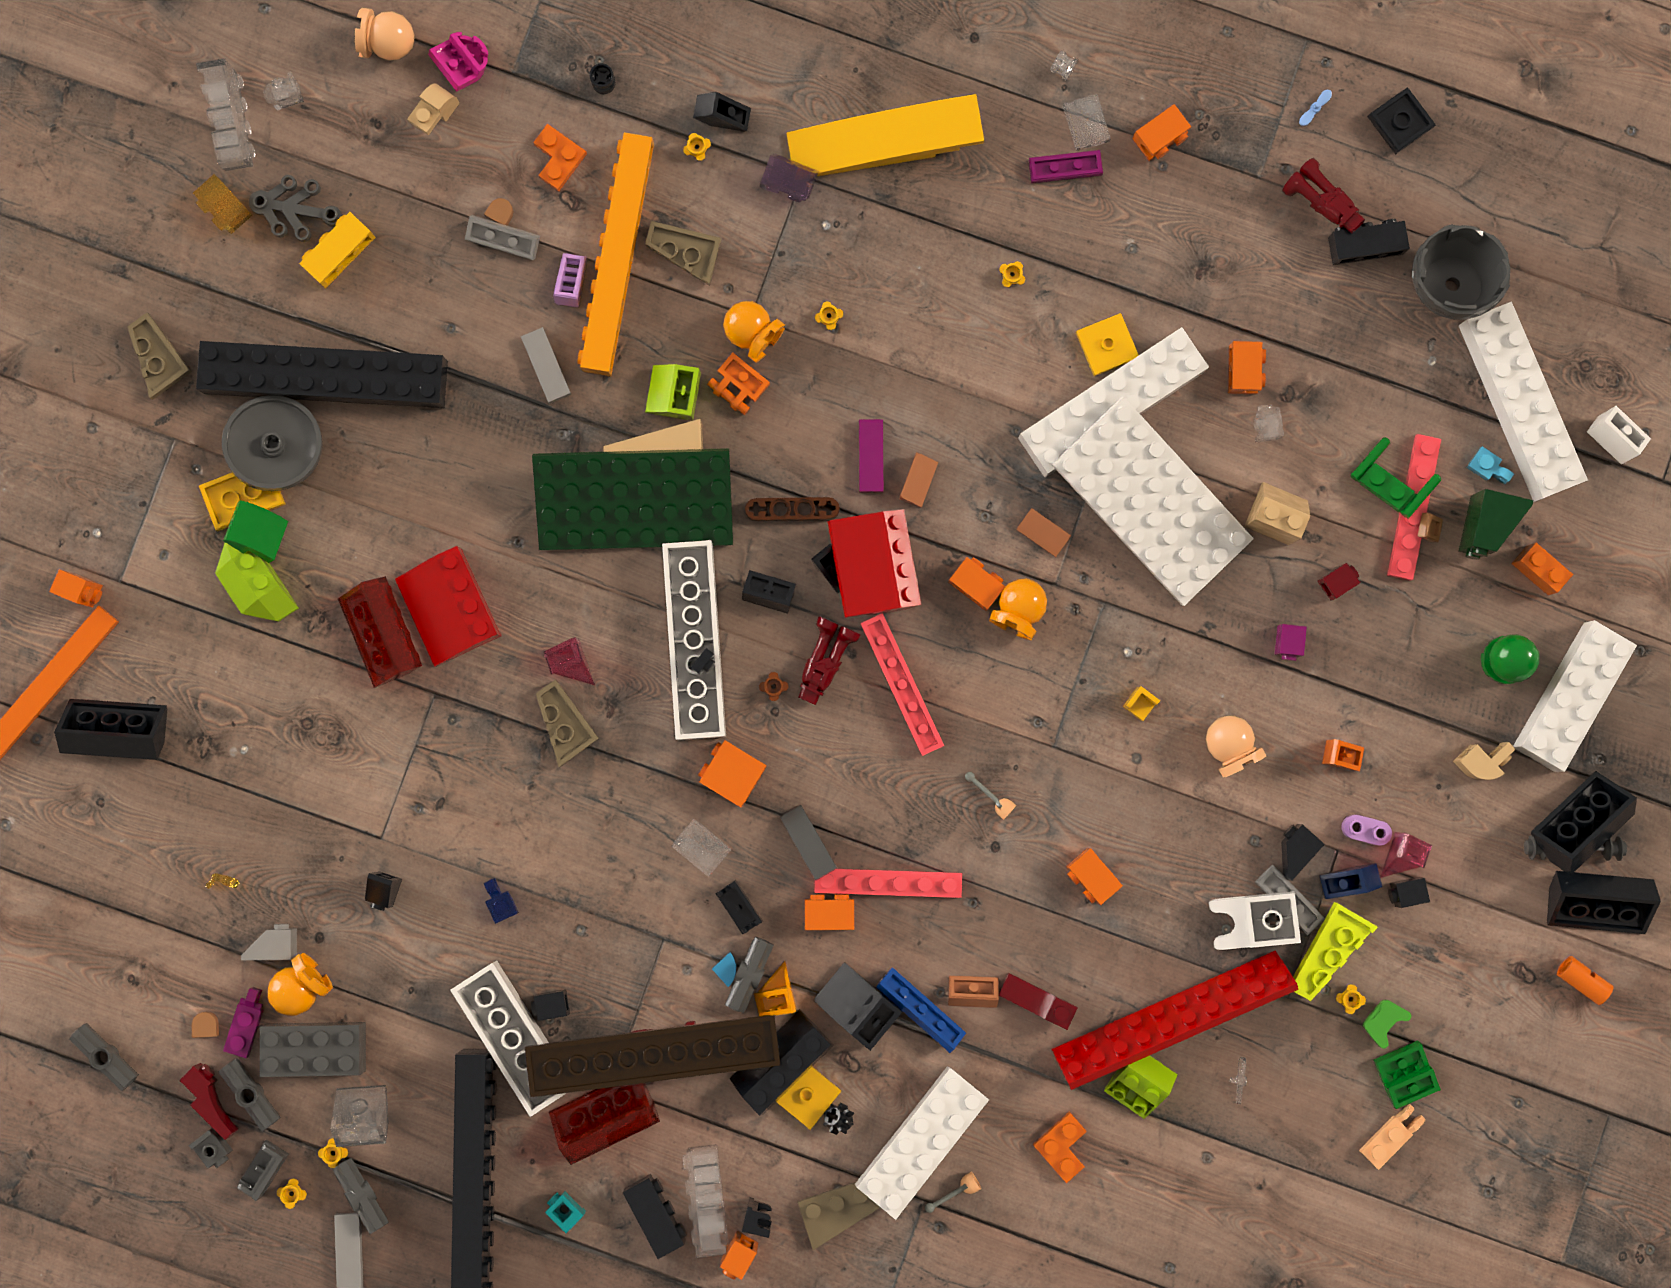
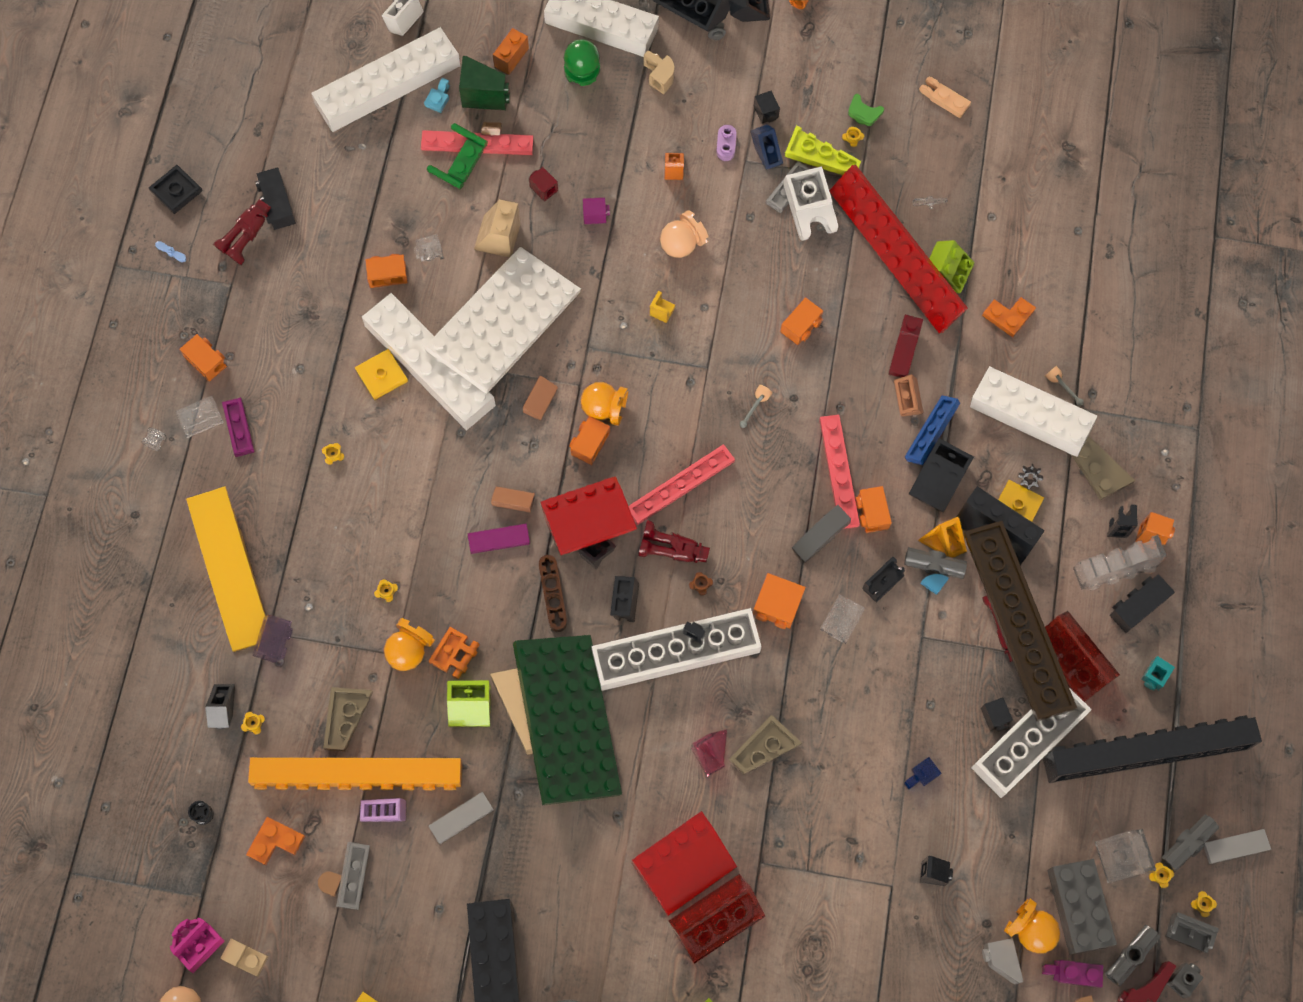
camera: 100 degrees left, 15 degrees down
(1298, 849) = (752, 184): black slope -> none
(1405, 854) = (738, 115): clear pink slope -> none
(1407, 1074) = (898, 93): green slope -> none
(1471, 261) = (289, 118): dark grey piece -> none

